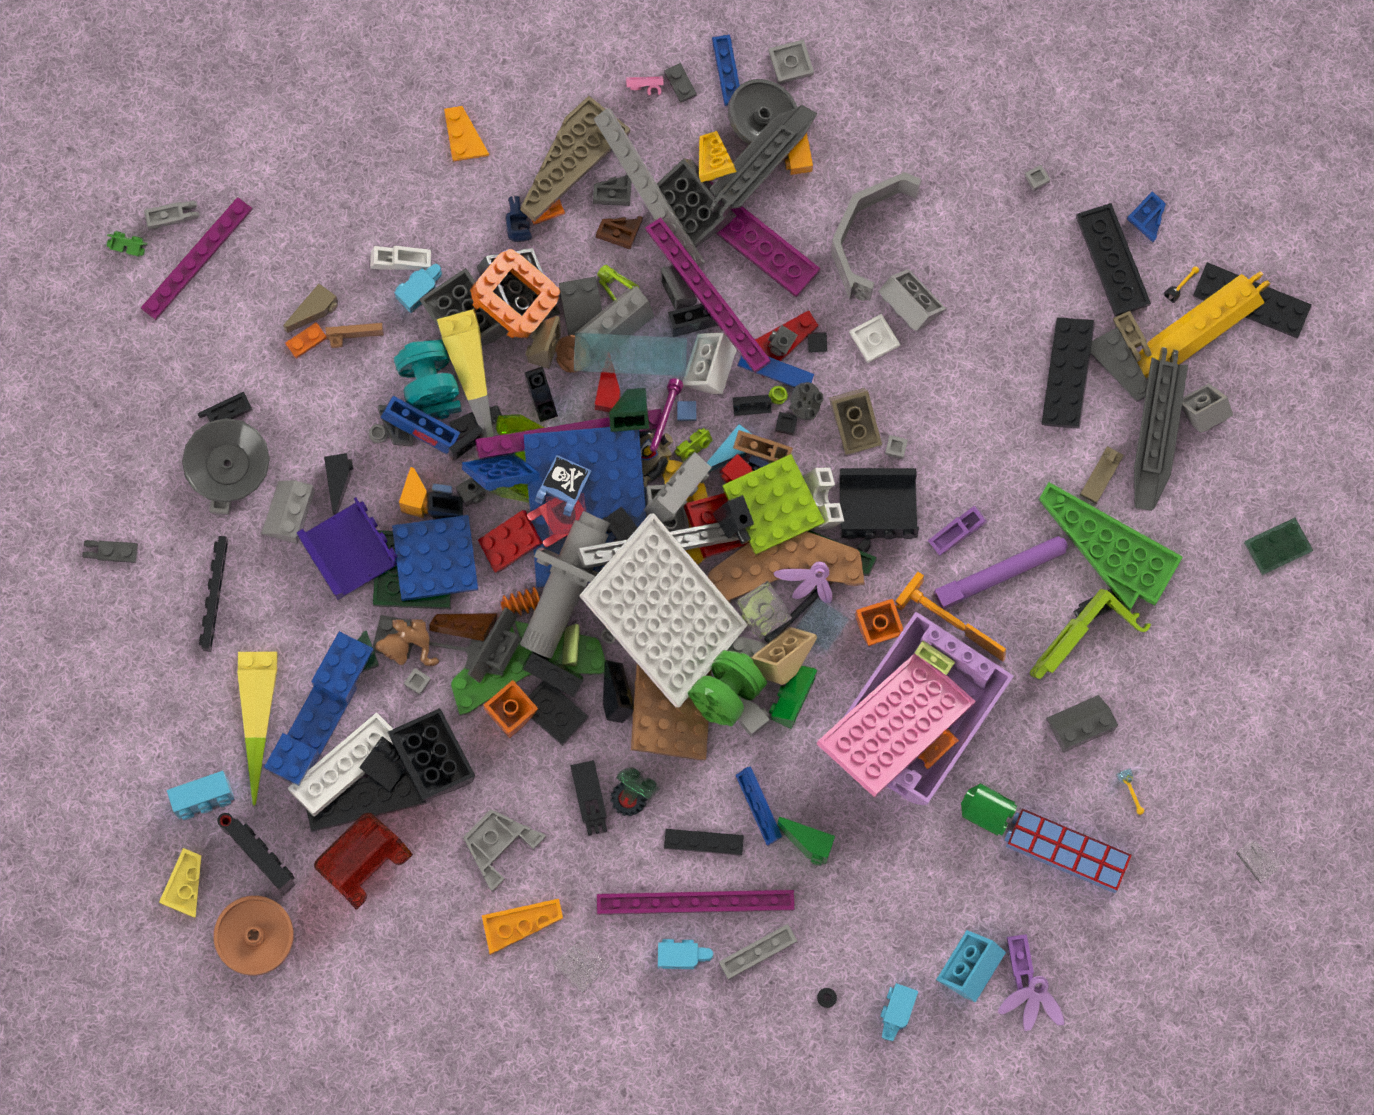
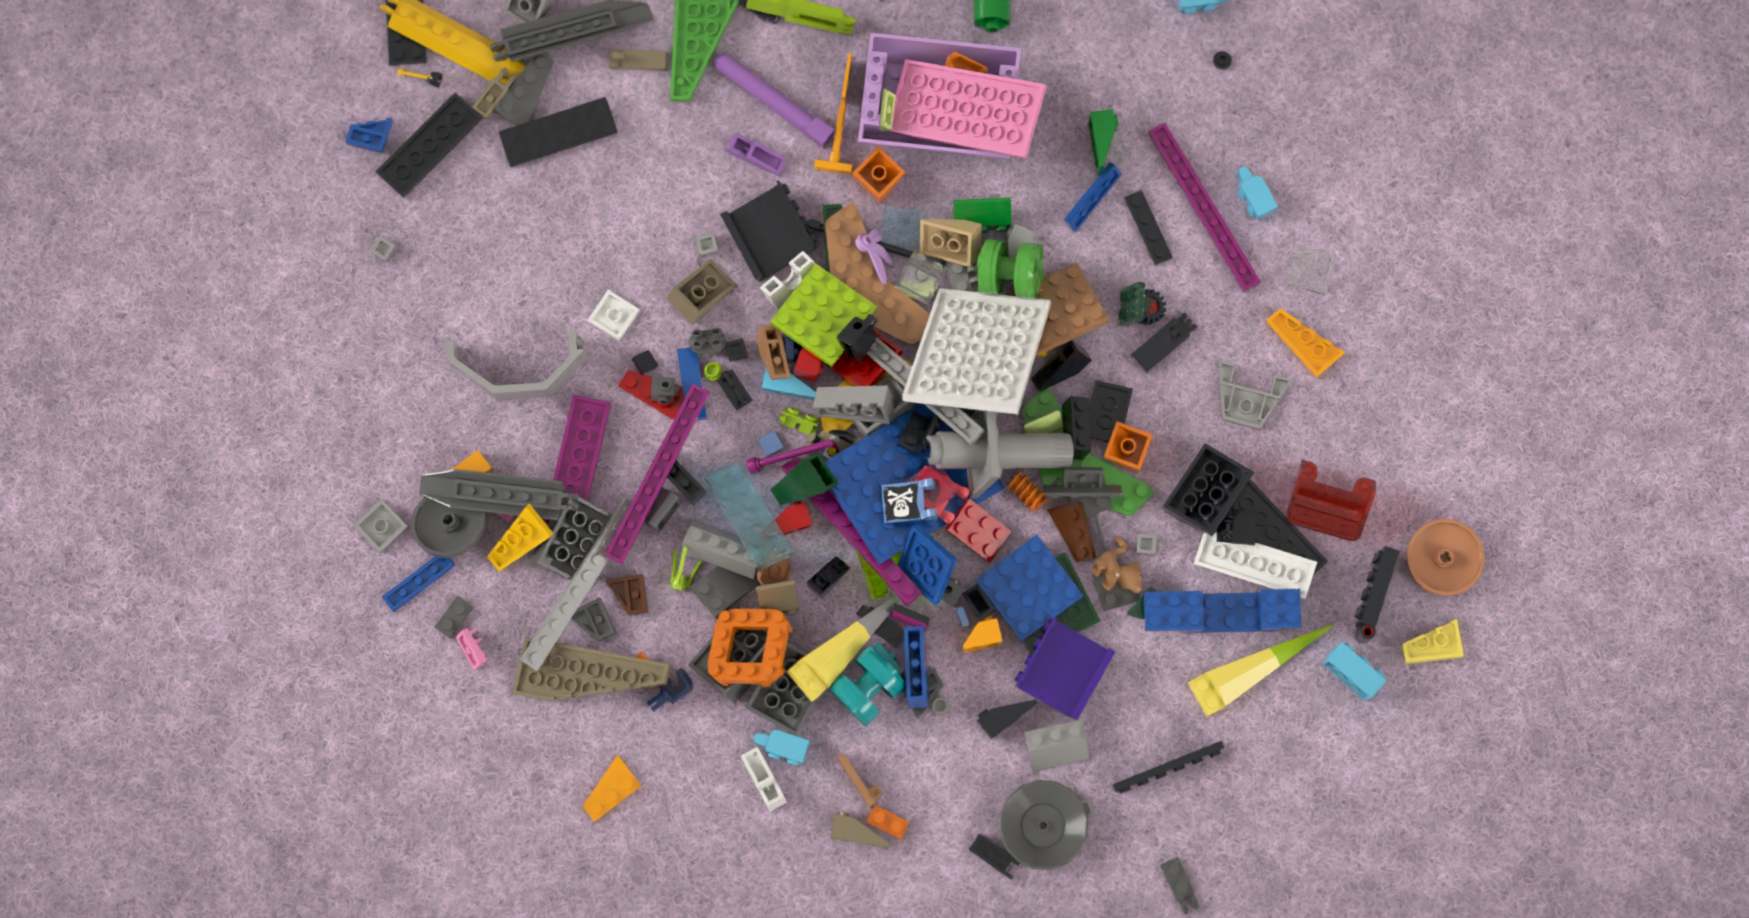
camera: 115 degrees left, 5 degrees up
(710, 363) = (716, 446): white slope -> none
(758, 951) = (1216, 134): light grey plate -> none
(911, 299) = (560, 299): light grey slope -> none

